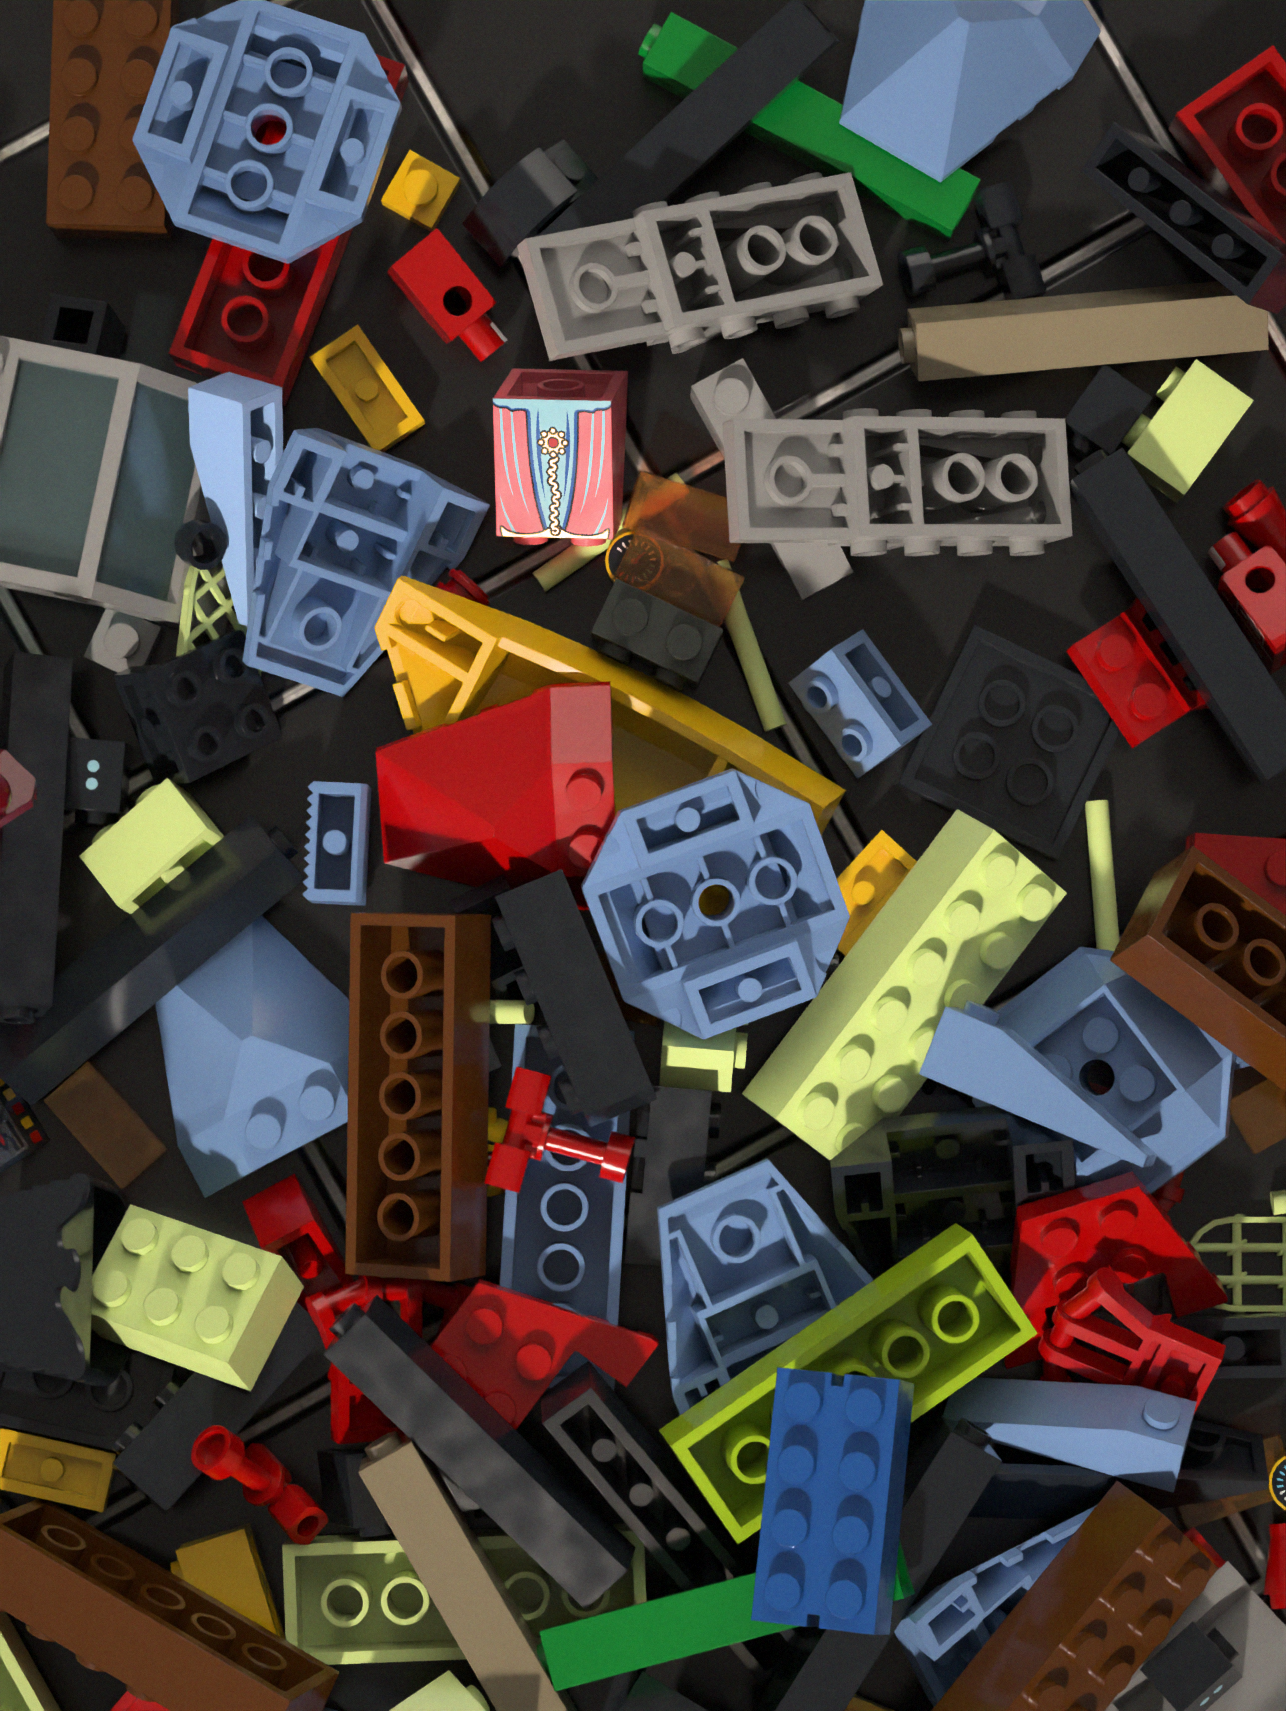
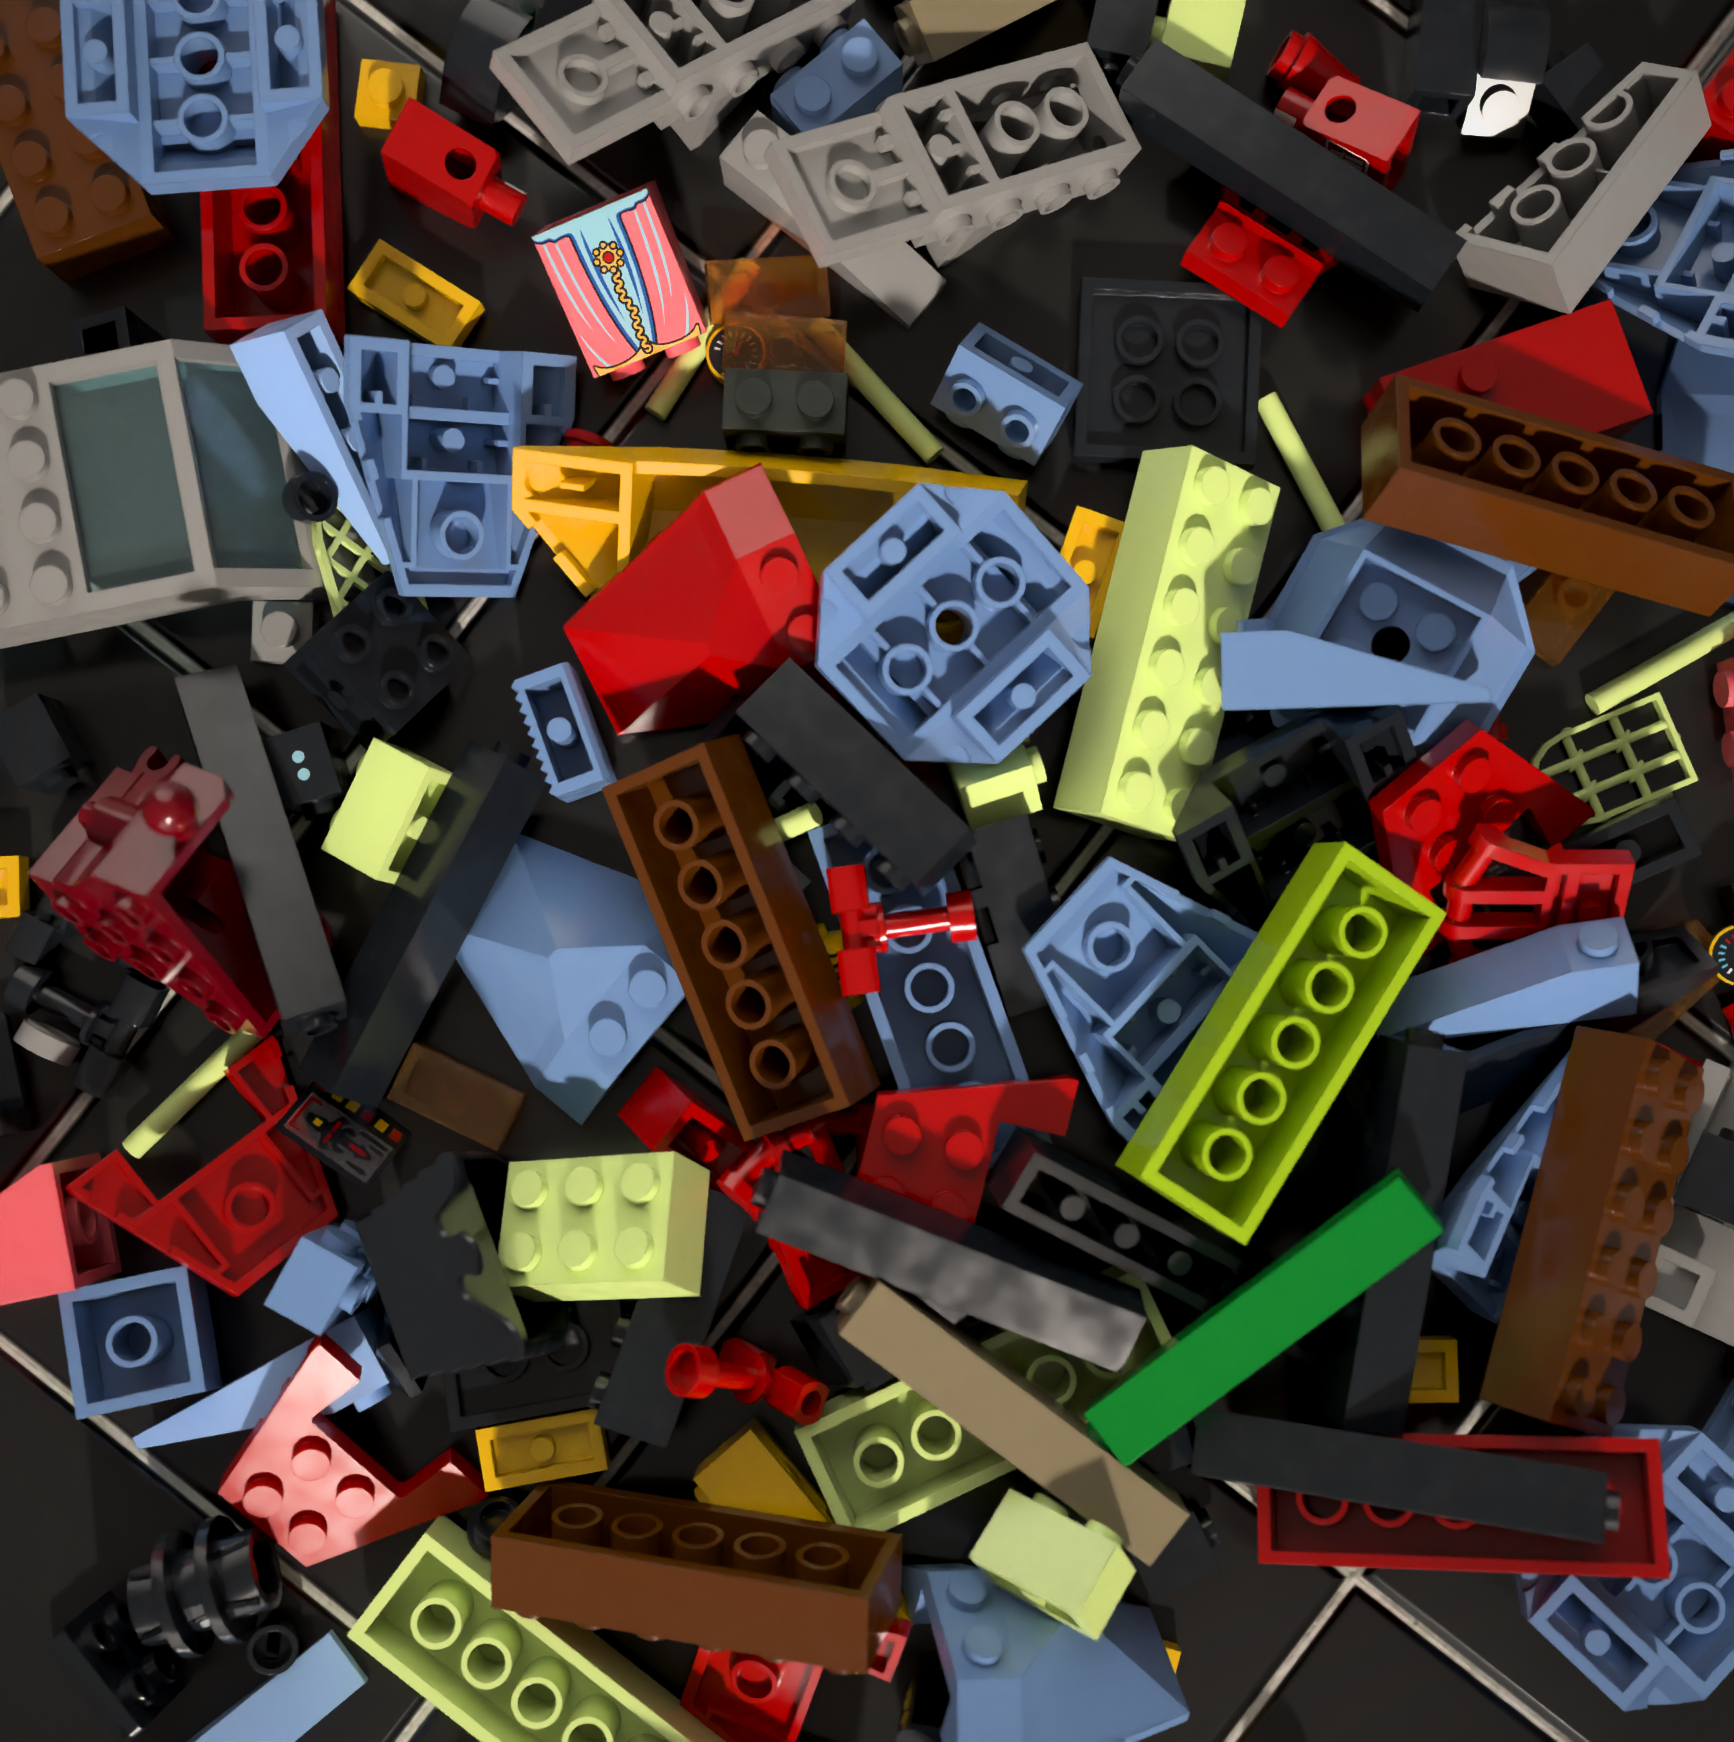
camera: 20 degrees left, 0 degrees up
(823, 363) = (839, 84): none -> medium blue brick
(833, 1501) = (1333, 1166): blue piece -> none

